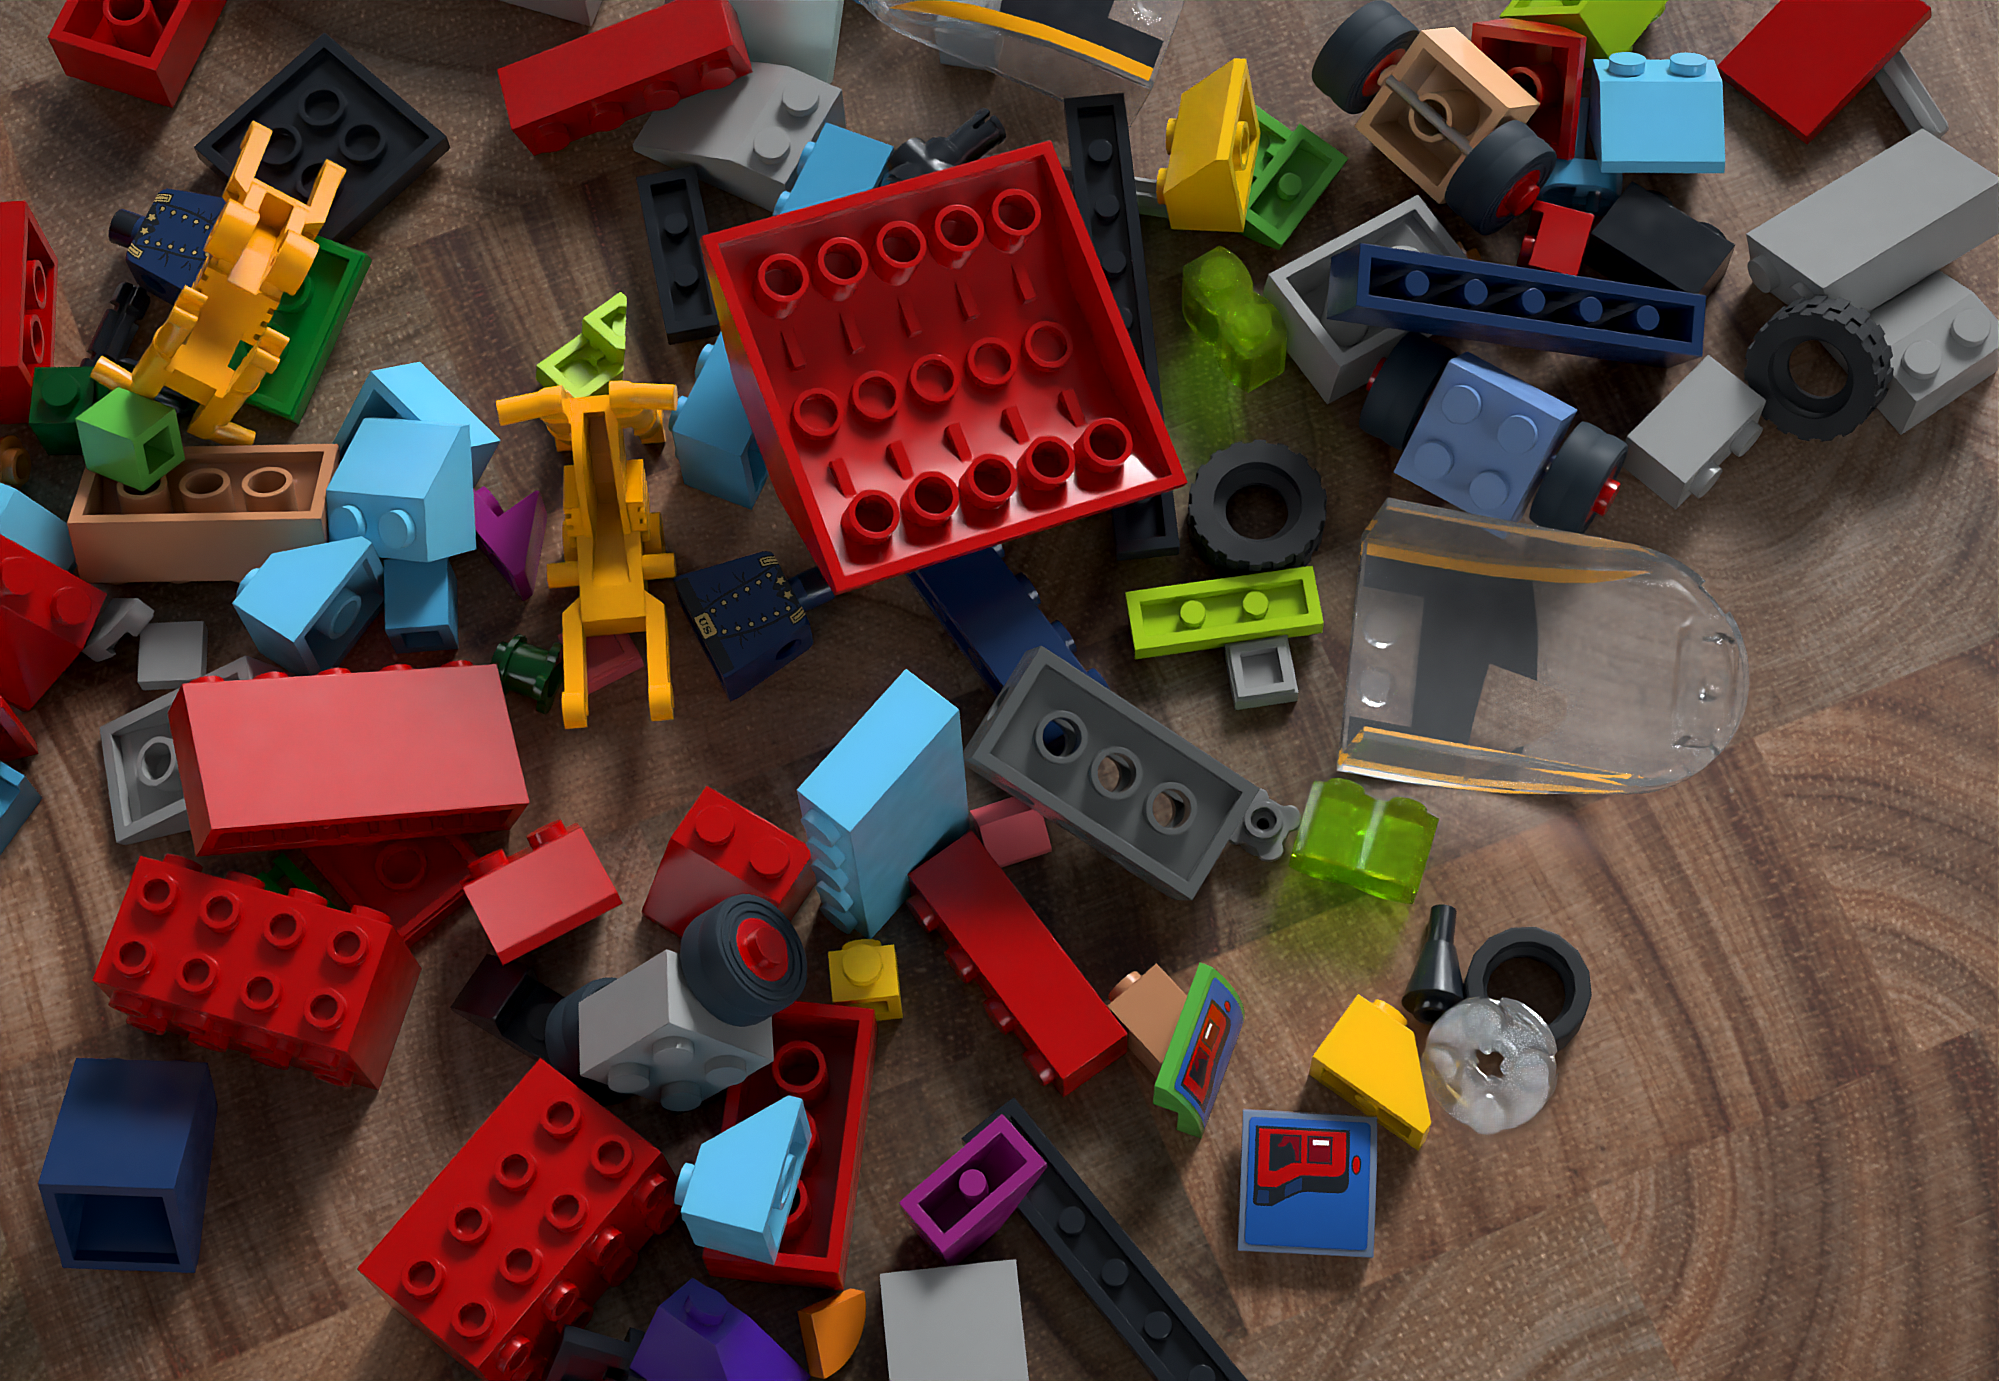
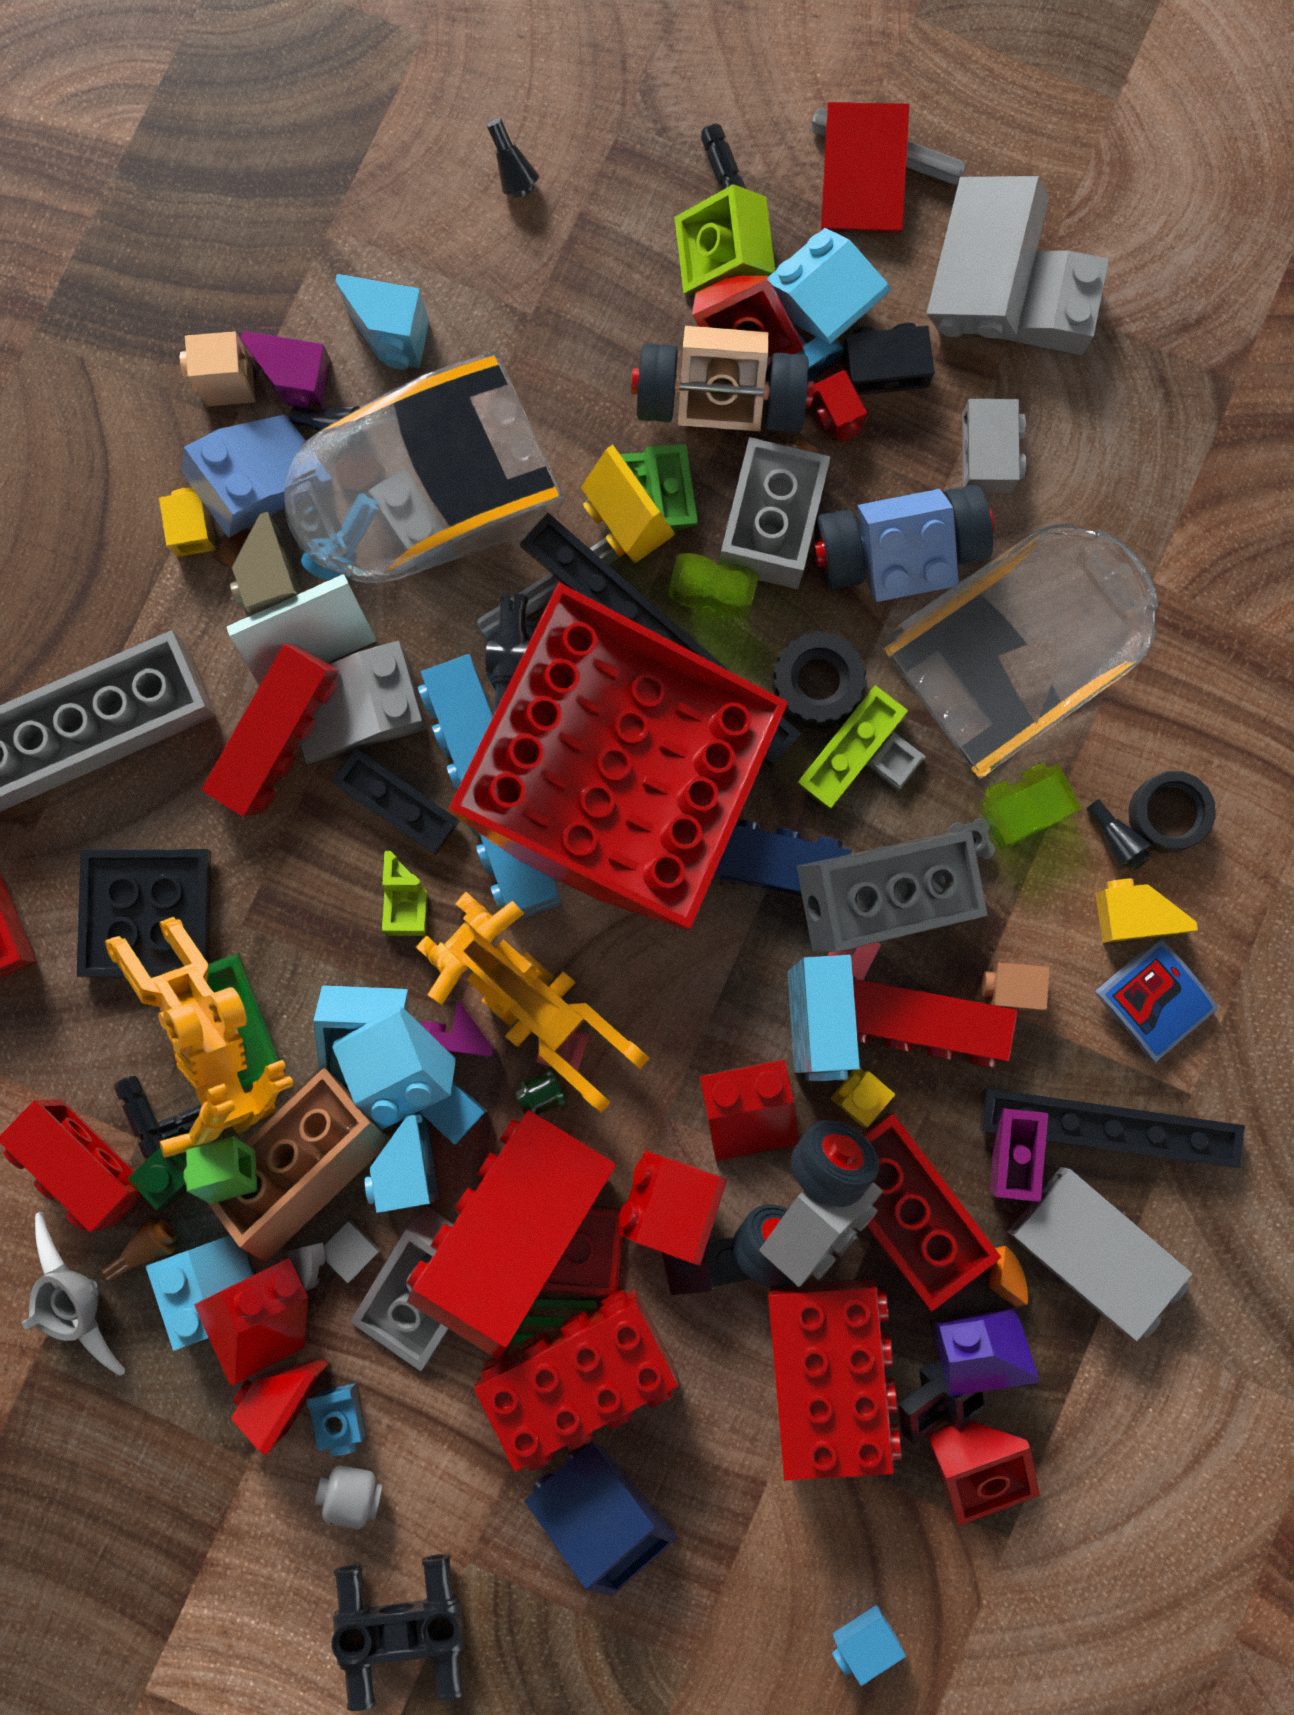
camera: 45 degrees left, 15 degrees up
(168, 241) = (126, 1037): dark blue torso -> none
(746, 1182) = (935, 1267): medium azure slope -> none
(750, 616) = (624, 964): dark blue torso -> none
(1200, 1050) = (1057, 988): slope -> none
(1483, 1100) = (1205, 882): clear plate -> none
(1515, 306) = (861, 461): dark blue brick -> none
(1848, 331) = (1021, 332): black tyre -> none

